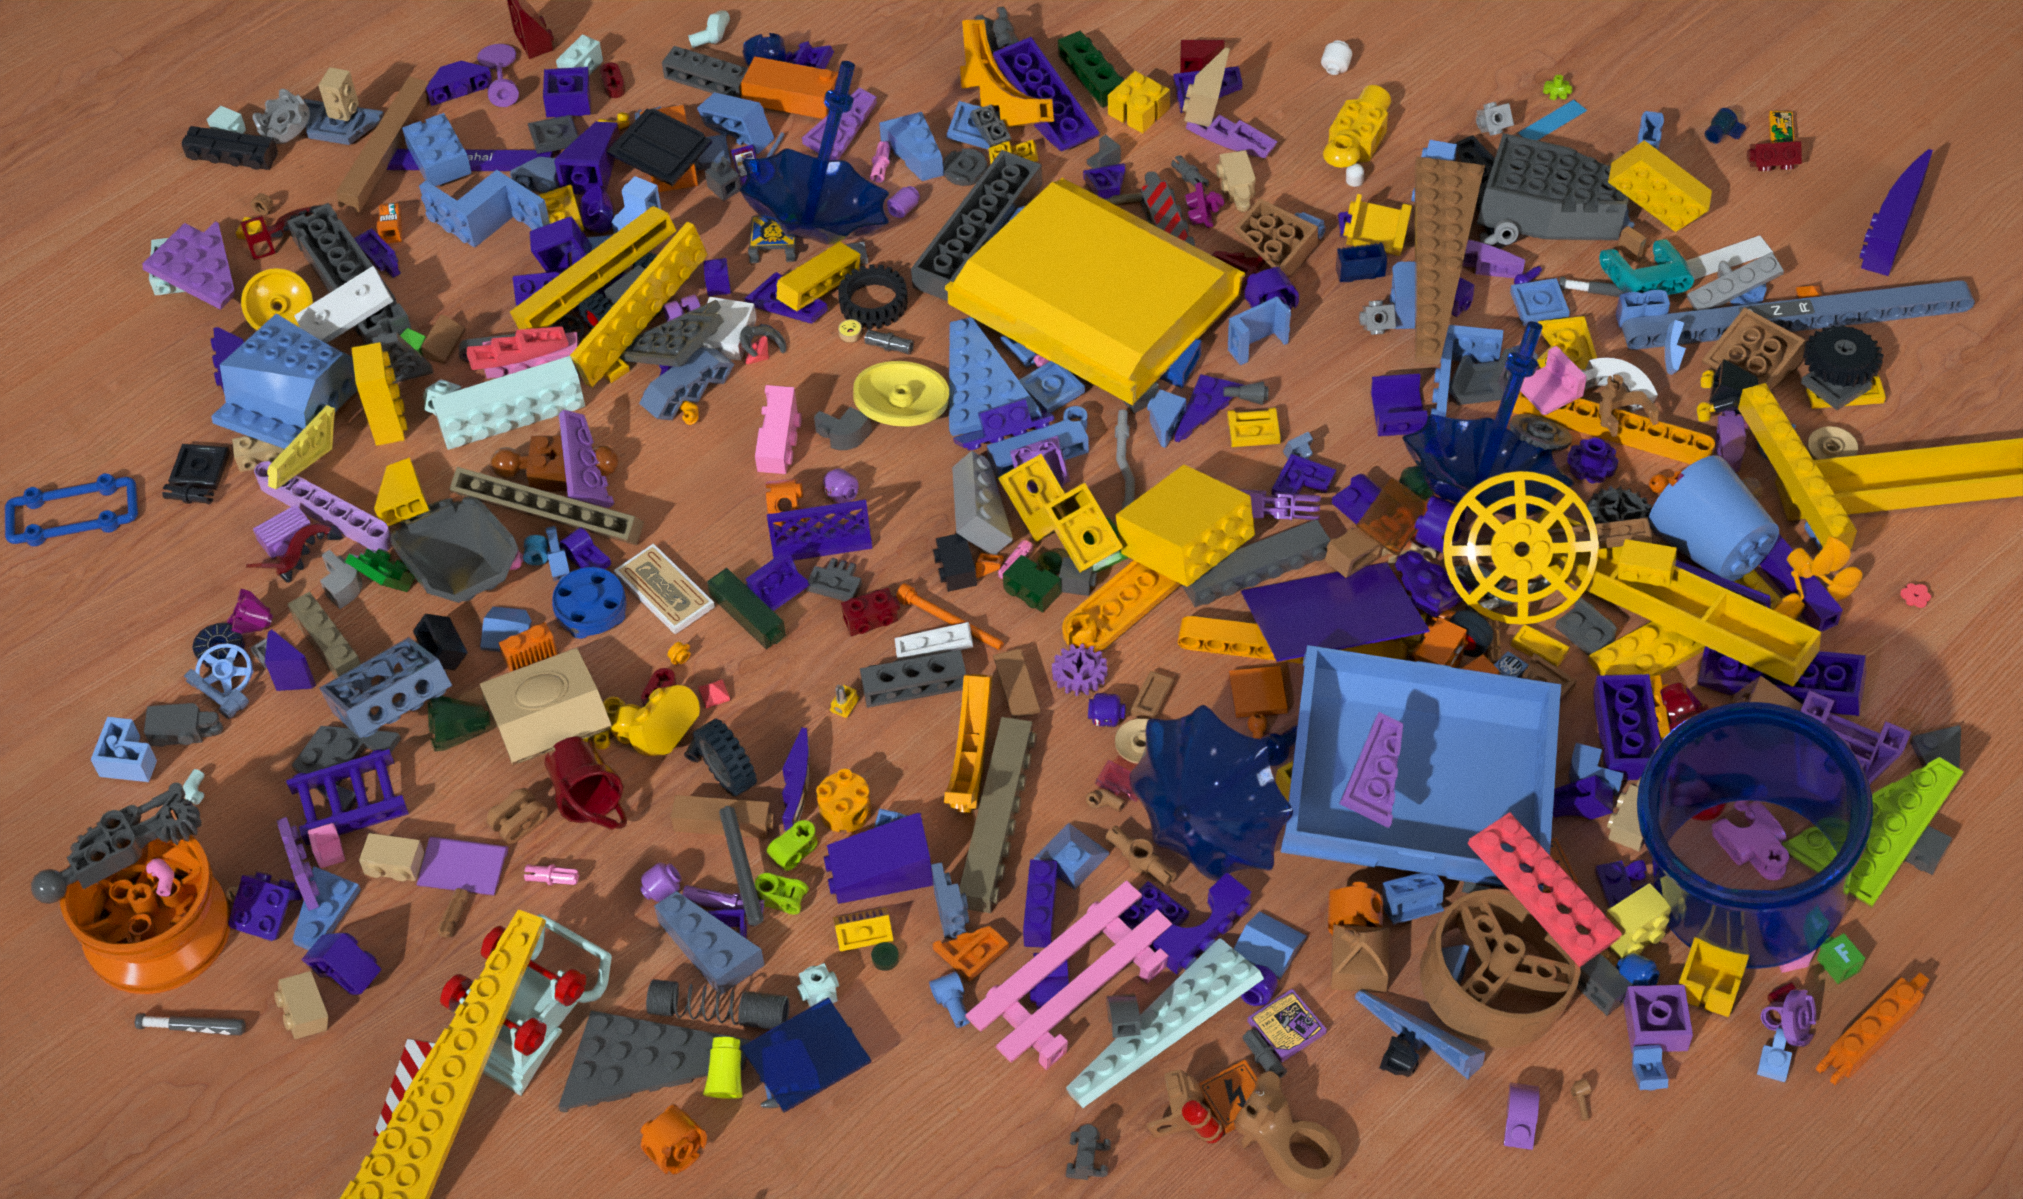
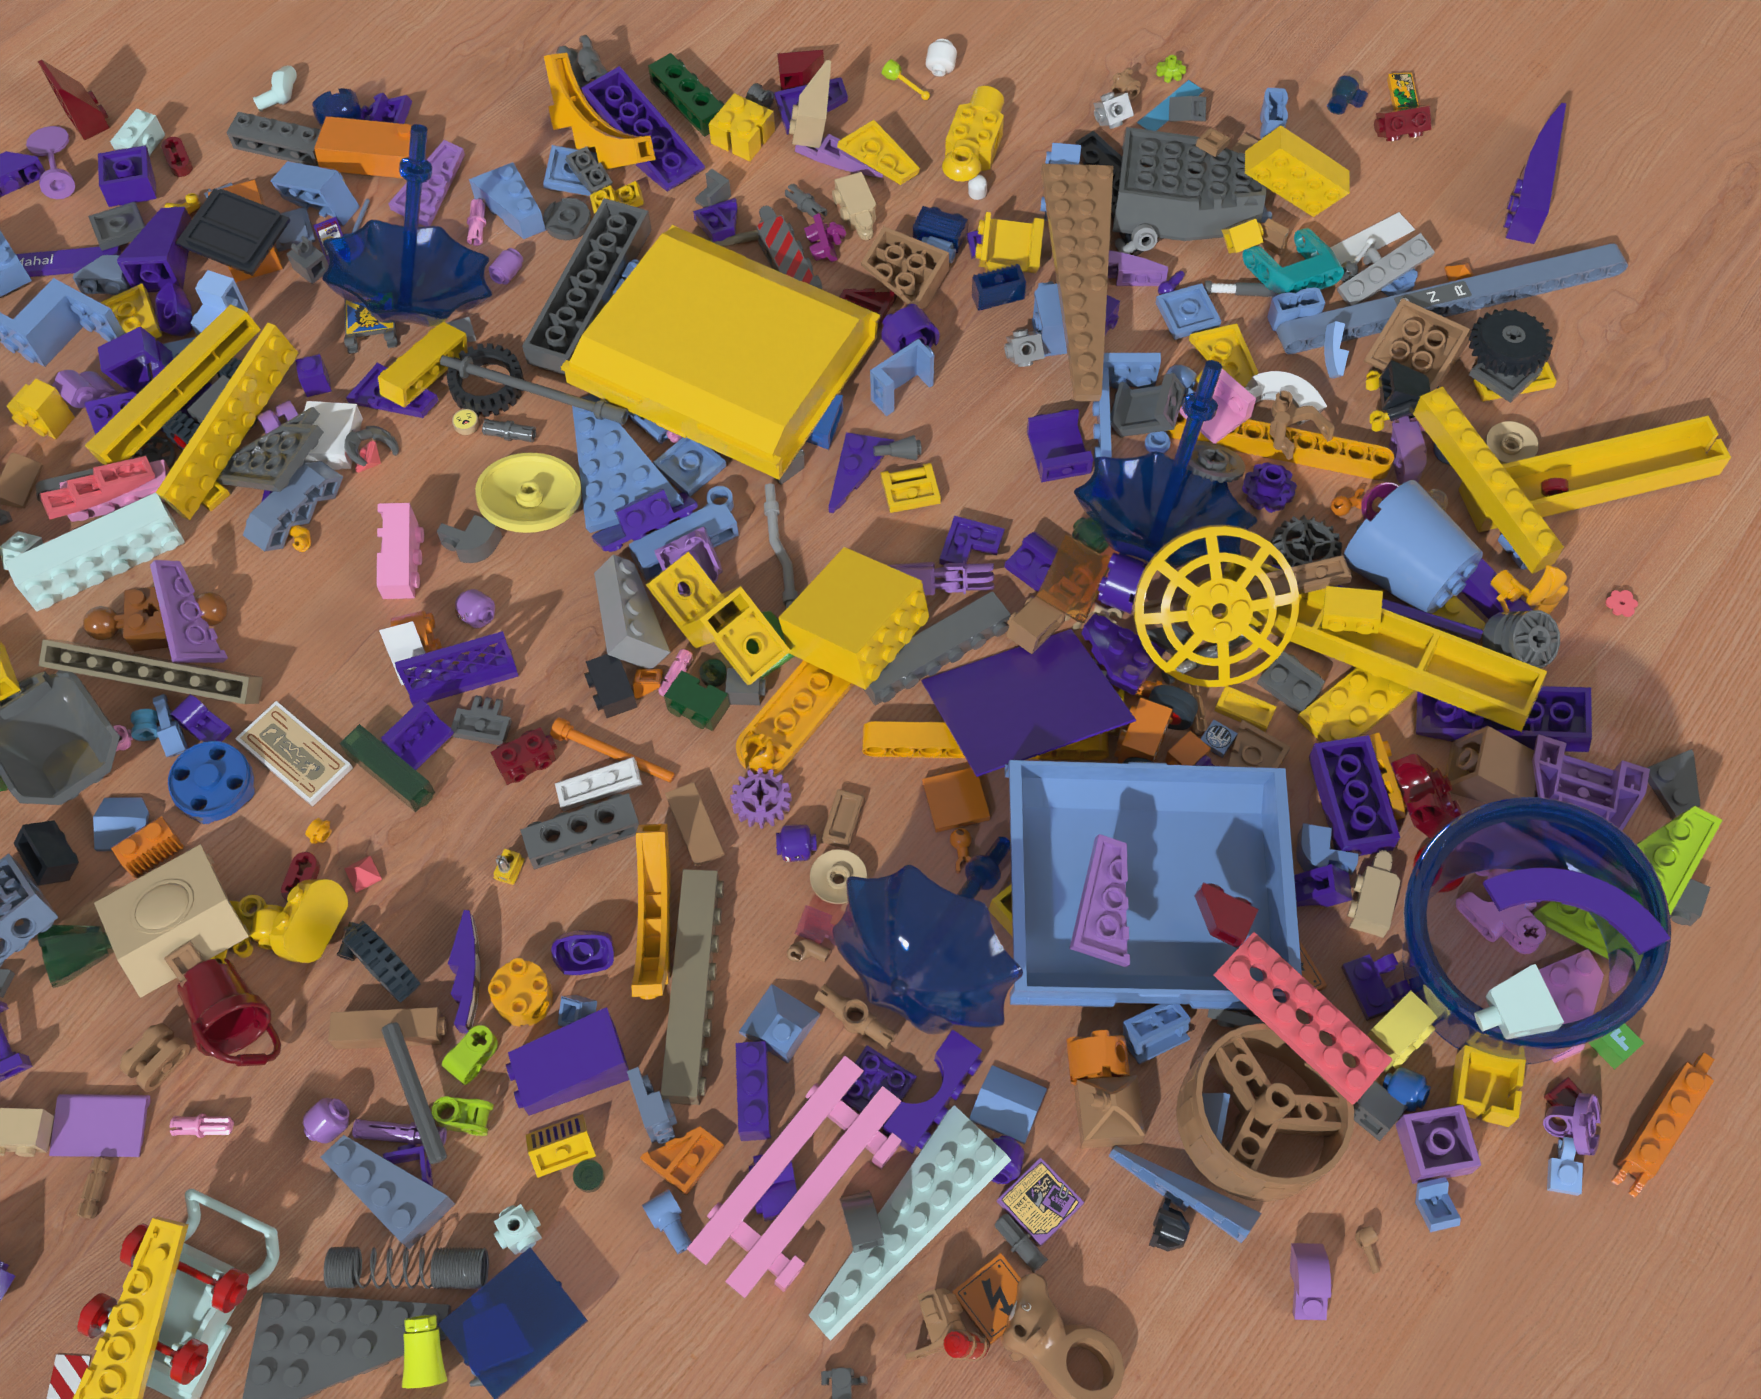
camera: 10 degrees left, 10 degrees up
(470, 280) = (41, 409): none -> yellow brick
(508, 264) = (80, 387): none -> medium lavender brick
(553, 733) = (183, 960): none -> medium nougat tile
(774, 499) = (402, 643): none -> white sticker
(903, 774) = (583, 952): none -> dark purple piece
(976, 329) = (601, 408): none -> dark grey bar
(1158, 74) = (760, 96): none -> dark grey wheel
(1165, 415) = (816, 484): medium blue slope -> none
(1265, 134) = (879, 151): none -> yellow wing
(1289, 66) = (893, 71): none -> hinge
(1299, 446) = (962, 506): sand blue tile -> none
(1316, 204) = (942, 225): none -> clear blue brick
(1485, 794) = (1224, 915): none -> dark red slope
(1490, 409) = (1157, 442): none -> medium blue plate
(1510, 95) = (1126, 84): none -> medium nougat brick
(1567, 124) = (1187, 108): none -> dark grey panel
(1584, 153) = (1212, 142): none -> medium nougat tile
(1601, 239) = (1243, 235): none -> yellow brick
(1702, 279) = (1352, 266): none -> hinge
(1724, 865) = (1520, 1006): none -> light aqua torso
(1792, 779) = (1581, 892): none -> dark purple tile
(1808, 602) = (1523, 636): none -> dark grey wheel
(1864, 483) = (1554, 486): none -> dark red tile

